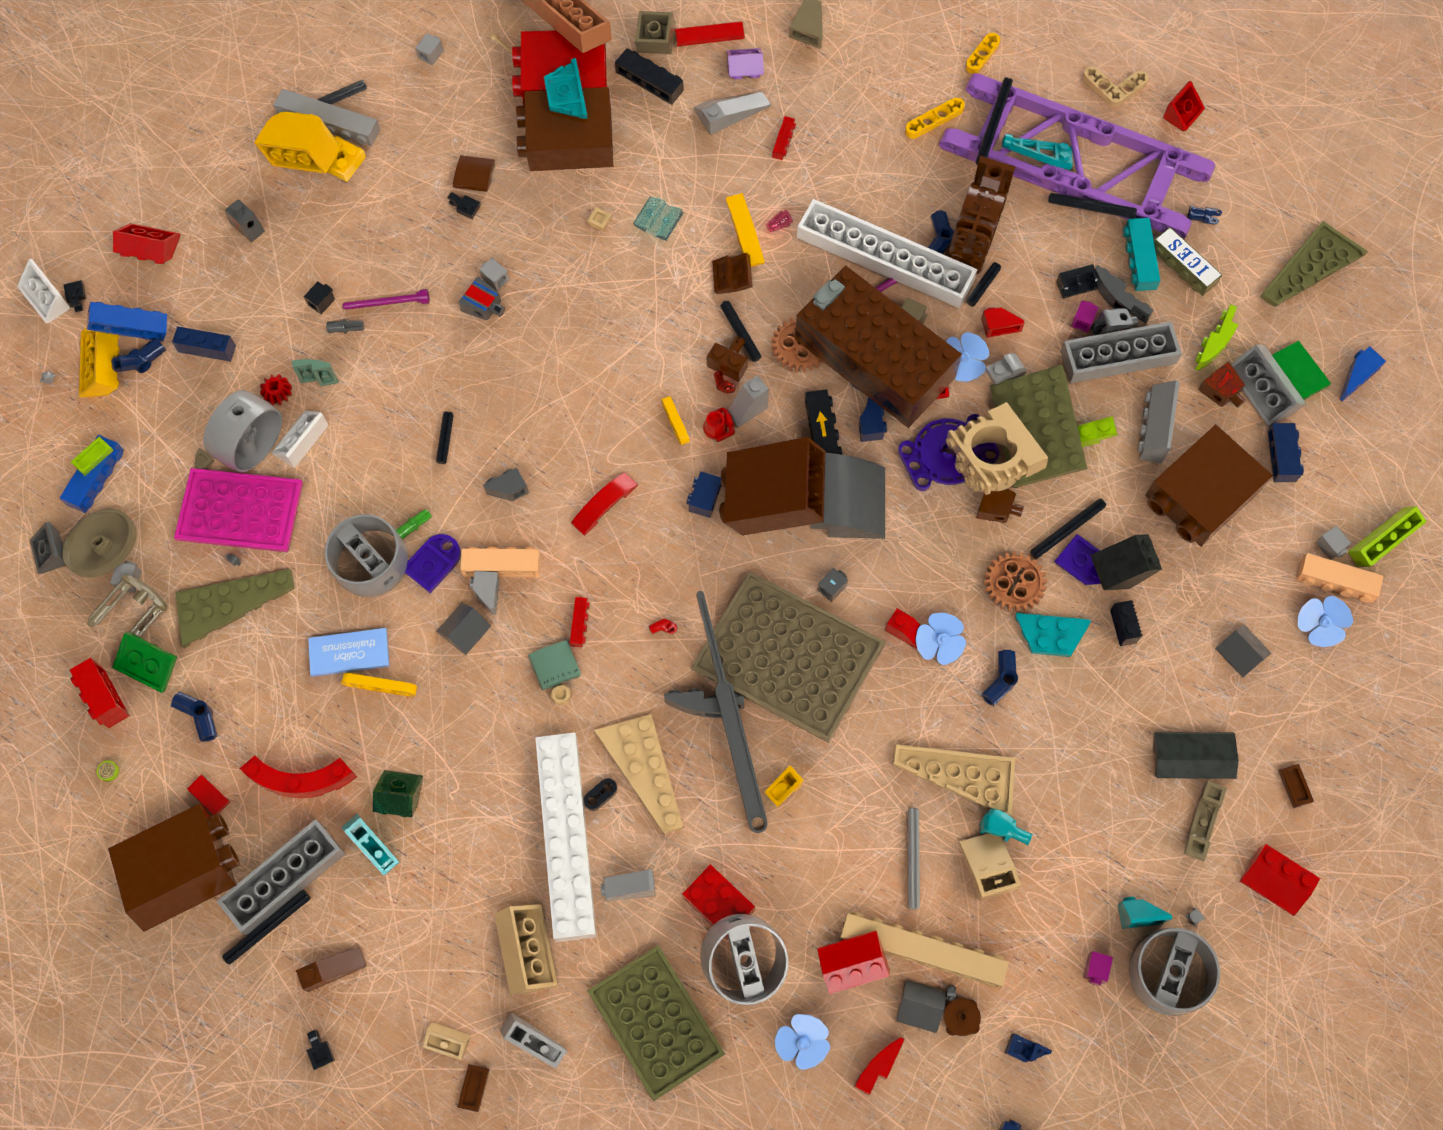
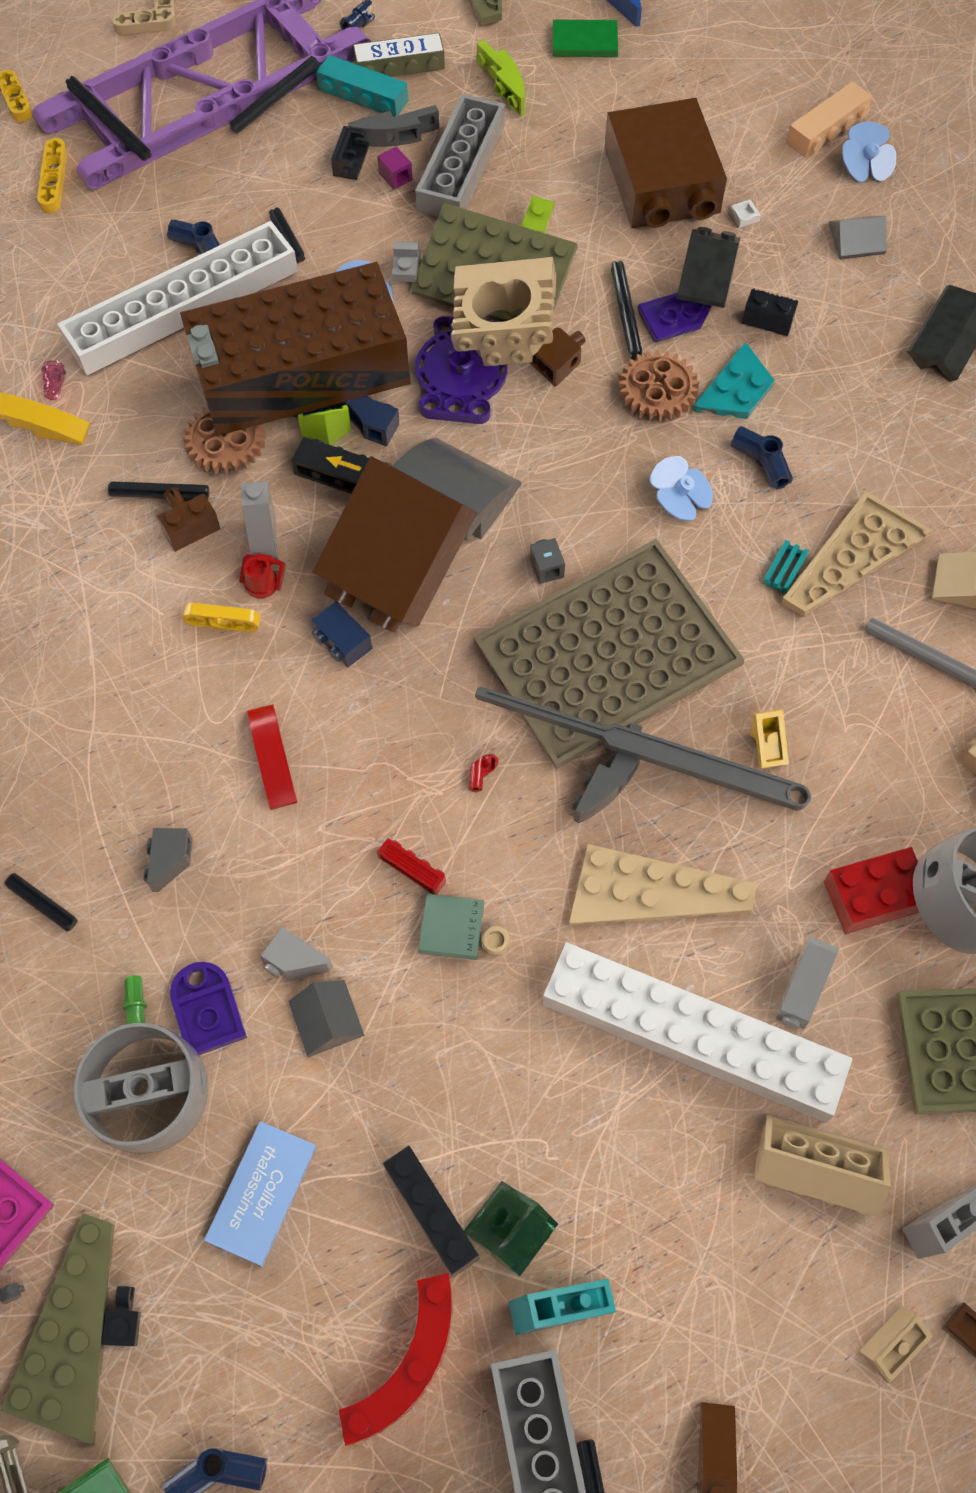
camera: 60 degrees left, 5 degrees down
(247, 623) = (122, 1324): none -> black plate
(379, 684) = (336, 1173): yellow beam -> none
(383, 745) = (431, 1211): none -> black brick
(507, 561) = (271, 911): light nougat brick -> none
(597, 790) = (665, 959): black beam -> none
(722, 385) = (213, 545): clear red arm -> none
(732, 274) = (79, 461): reddish brown slope -> none
(845, 399) = (326, 425): none -> lime slope
(903, 627) = (644, 517): red slope -> none
(941, 735) = (794, 550): none -> teal tile
(981, 212) = (210, 173): reddish brown brick -> none
(1000, 322) = (344, 241): red slope -> none
(1002, 824) = (938, 543): teal piece -> none
(1061, 152) = (178, 99): teal plate -> none
(1113, 321) = (422, 142): dark grey torso -> none
(1158, 422) = (564, 164): light grey slope -> none
(1210, 563) = (744, 213): none -> white tile
(1224, 386) = (560, 99): reddish brown torso -> none
(1267, 385) = (583, 66): light grey slope -> none
(1285, 452) = (659, 86): dark blue brick -> none
(1334, 543) = (789, 104): light grey brick -> none
(1387, 536) = (811, 59): lime brick -> none

